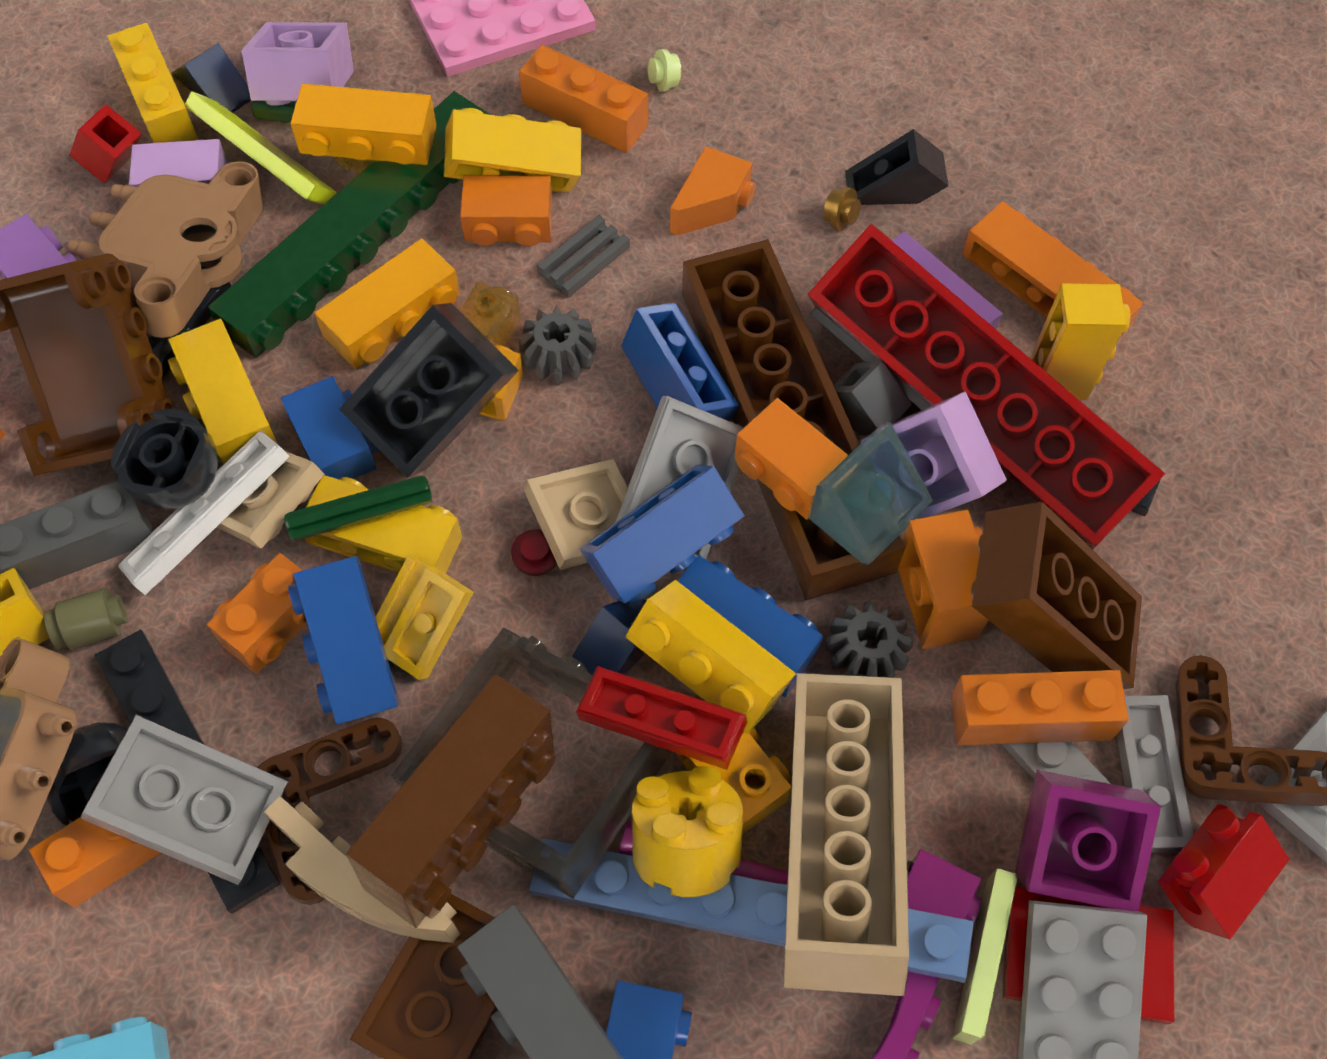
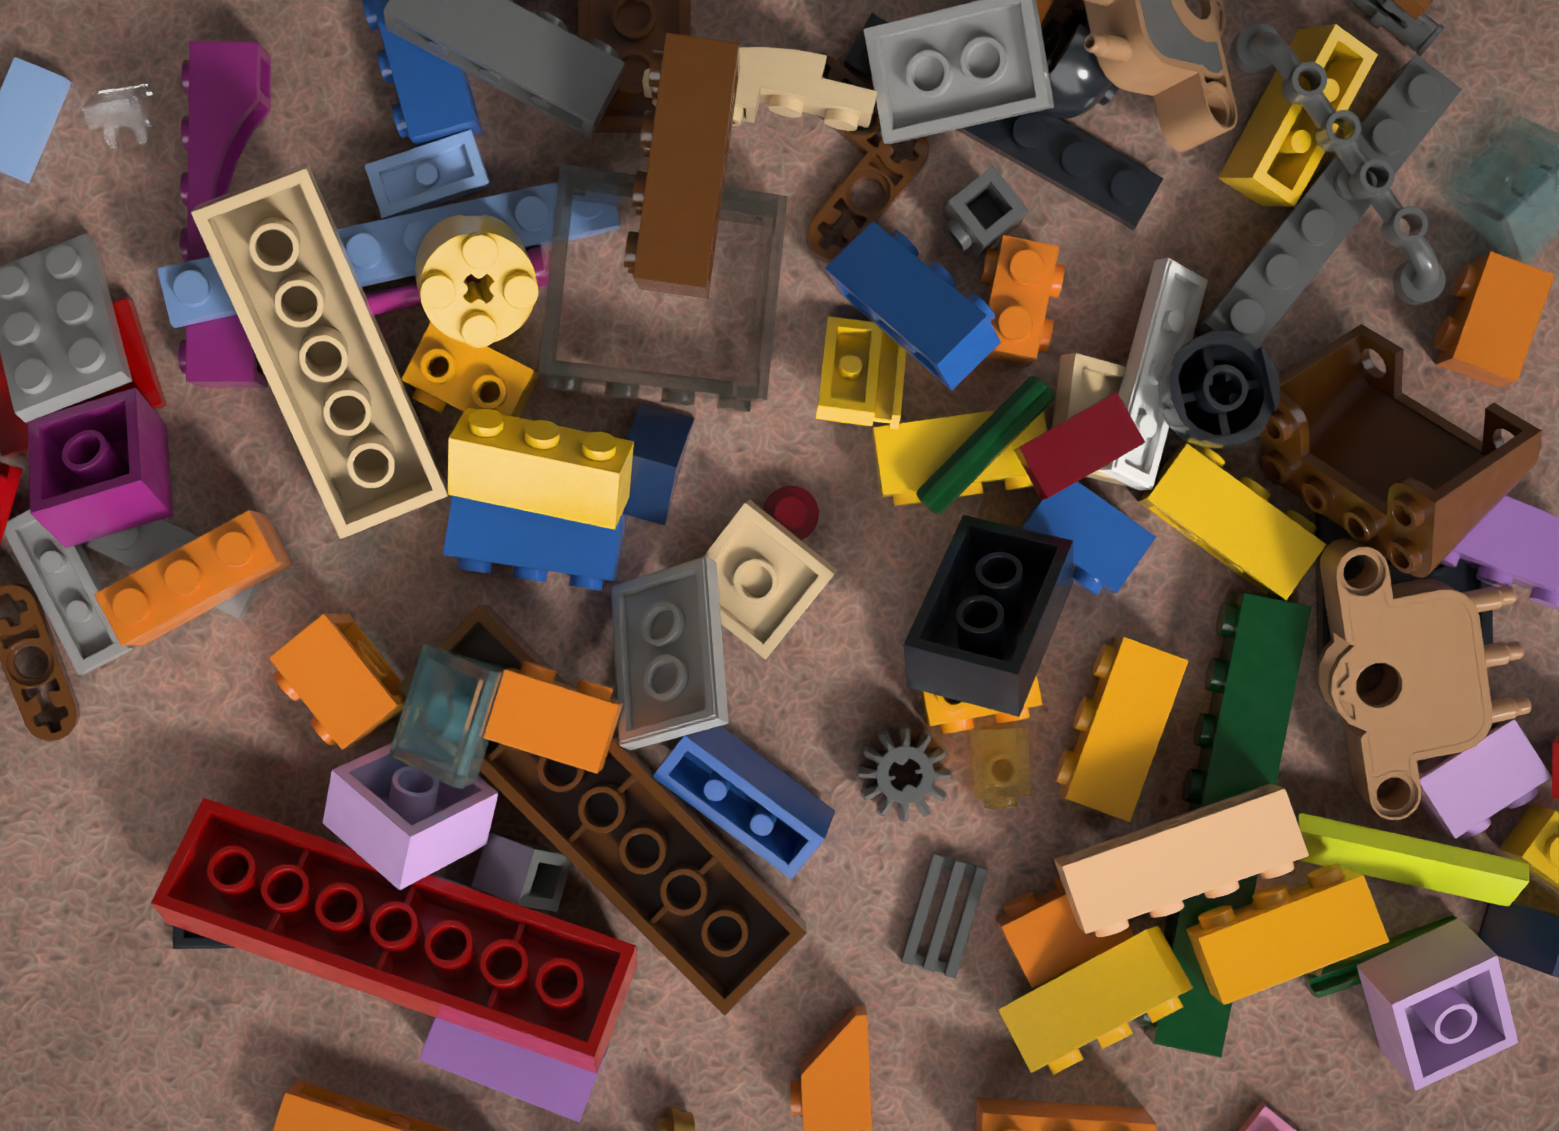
camera: 160 degrees right, 25 degrees up
(85, 619) = (1195, 205): olive brick -> none
(247, 687) = (983, 213): none -> dark grey brick
(290, 464) = (1079, 446): none -> dark red tile
(401, 193) = (1181, 859): none -> light nougat brick
(662, 717) = (547, 364): red tile -> none
(663, 534) = (655, 574): blue brick -> none
(687, 965) = (428, 175): none -> light blue plate
(873, 625) = (381, 573): dark grey gear -> none
(985, 957) = (159, 336): yellowish green tile -> none
(1055, 594) = (211, 690): reddish brown brick -> none
(1081, 335) = (310, 1045): yellow brick -> none

